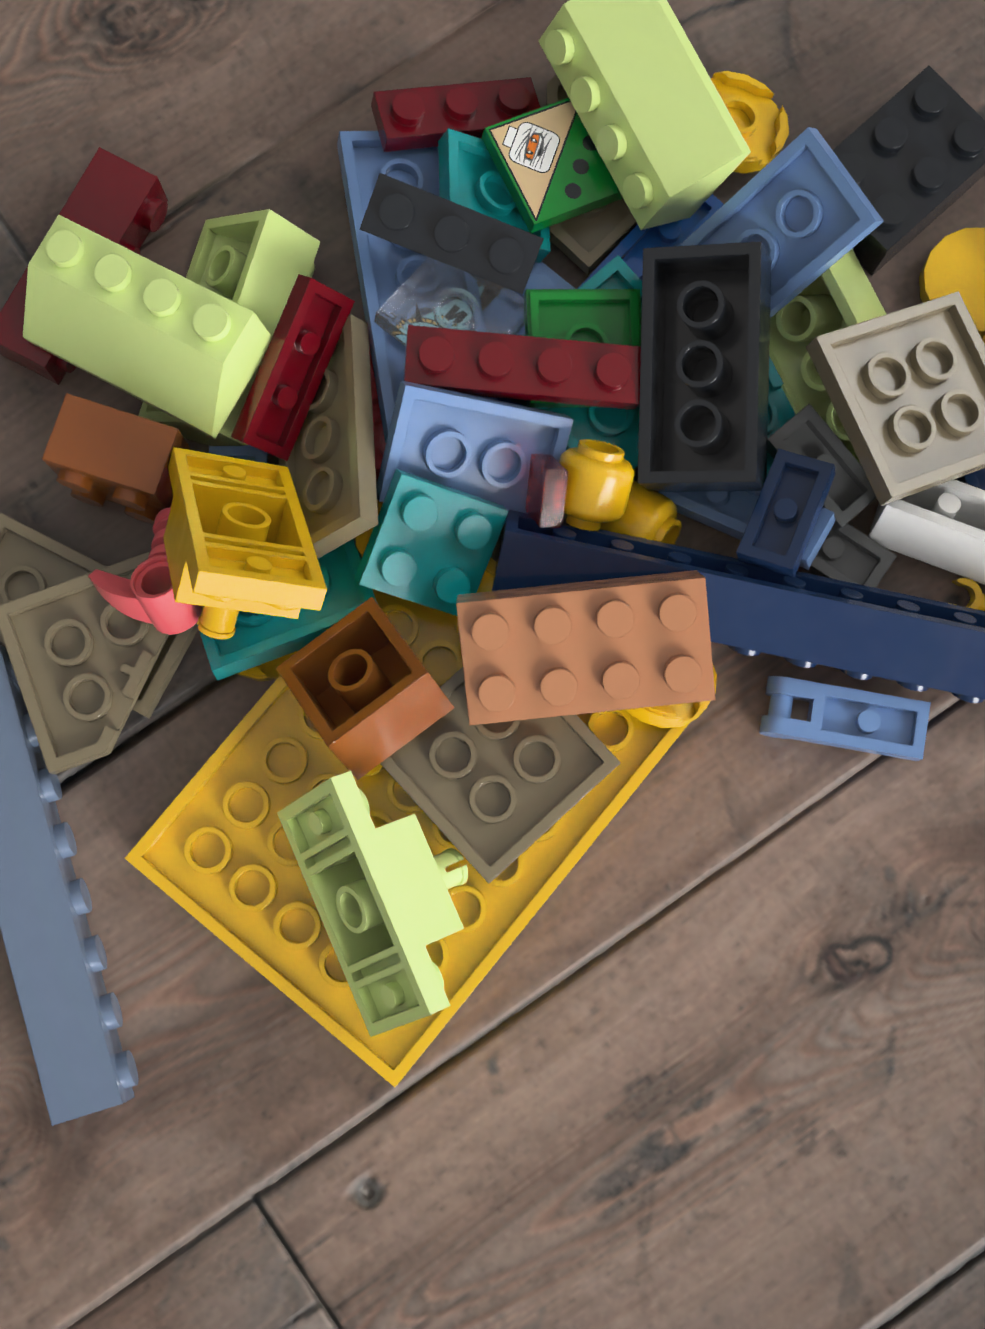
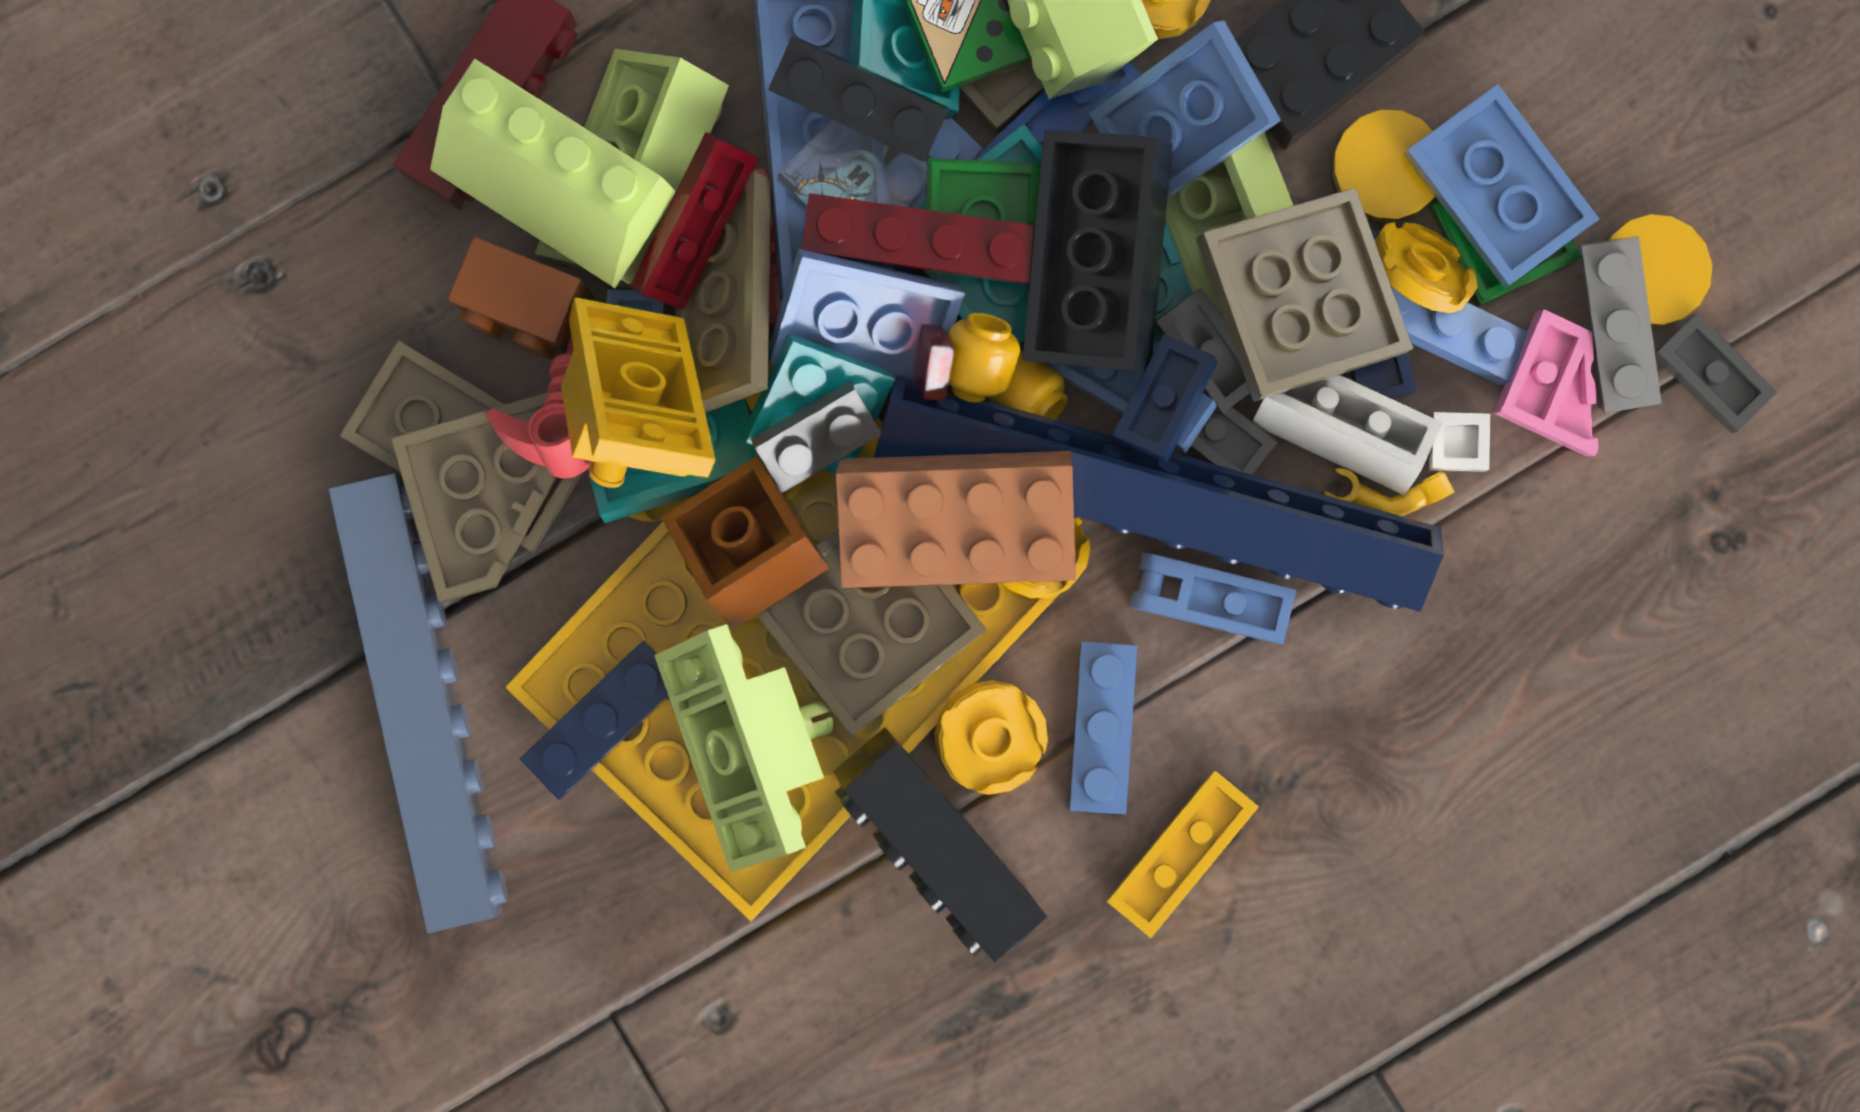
camera: 10 degrees right, 5 degrees up
(222, 888) = (598, 722): none -> dark blue plate
(431, 572) = (816, 436): none -> dark grey plate
(601, 1004) = (946, 853): none -> black brick
(630, 875) = (990, 737): none -> yellow tile
(744, 859) = (1103, 728): none -> medium blue plate
(838, 983) = (1182, 853): none -> yellow plate

